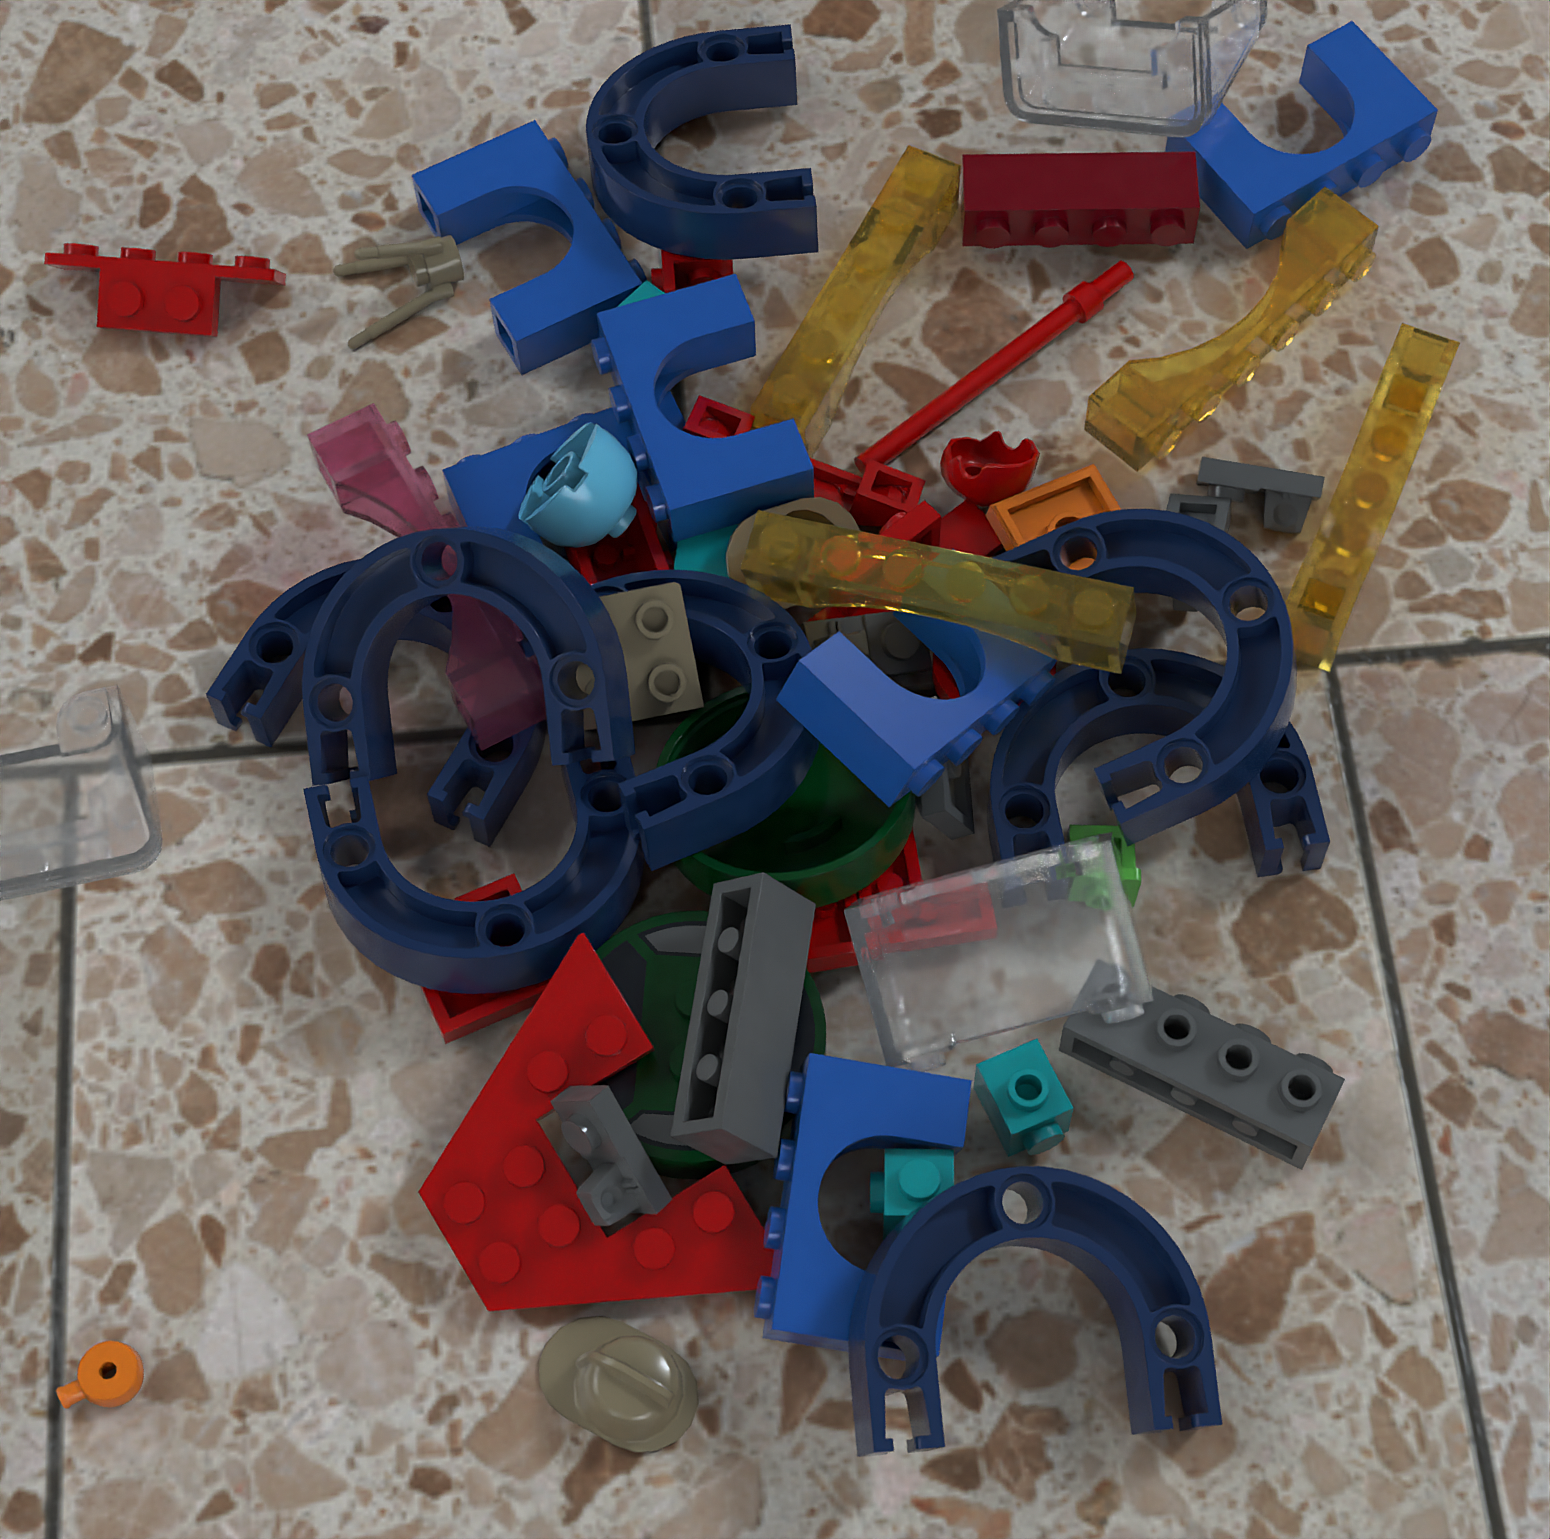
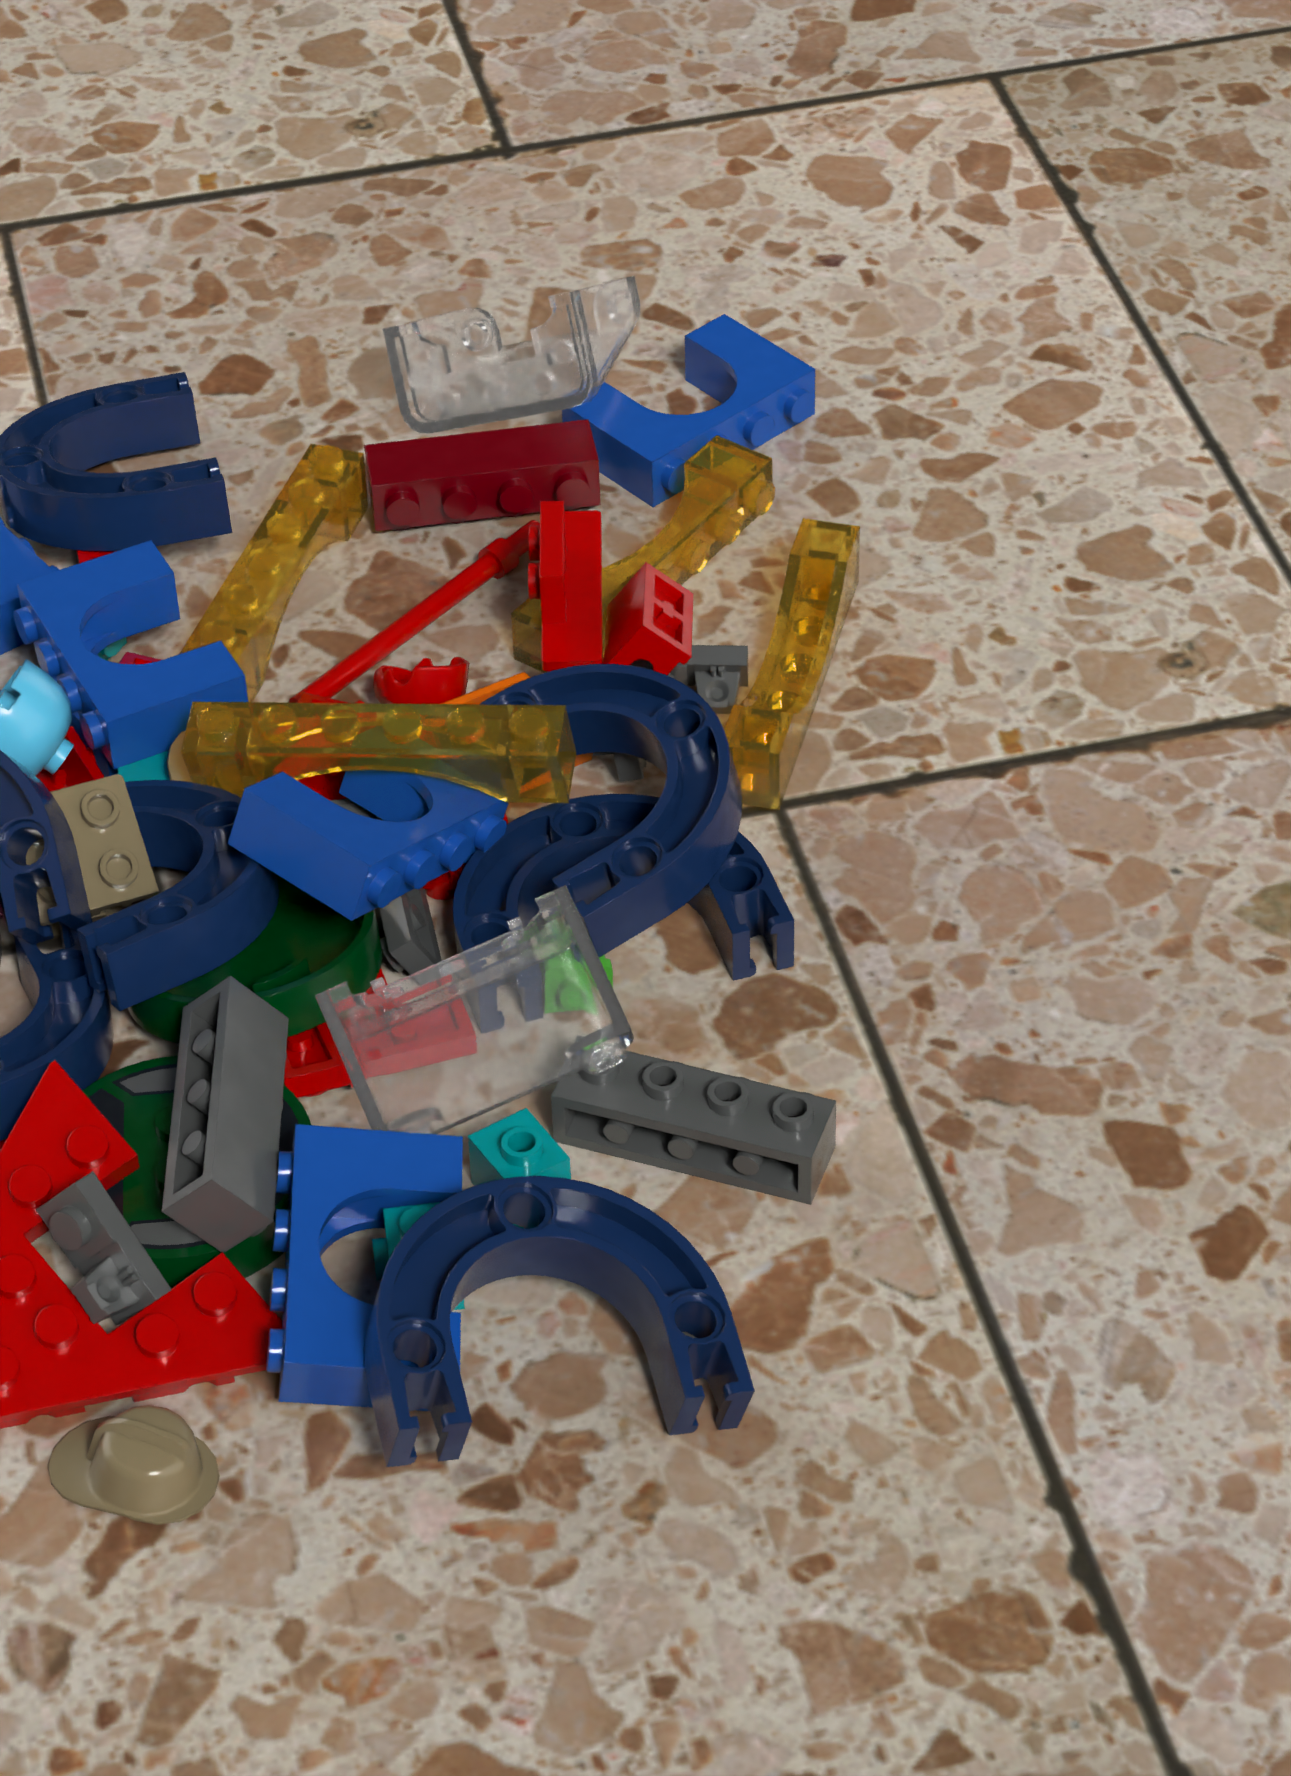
camera: 10 degrees left, 20 degrees down
(1152, 382) = (567, 584): none -> red bracket
(1226, 444) = (649, 622): none -> red hinge

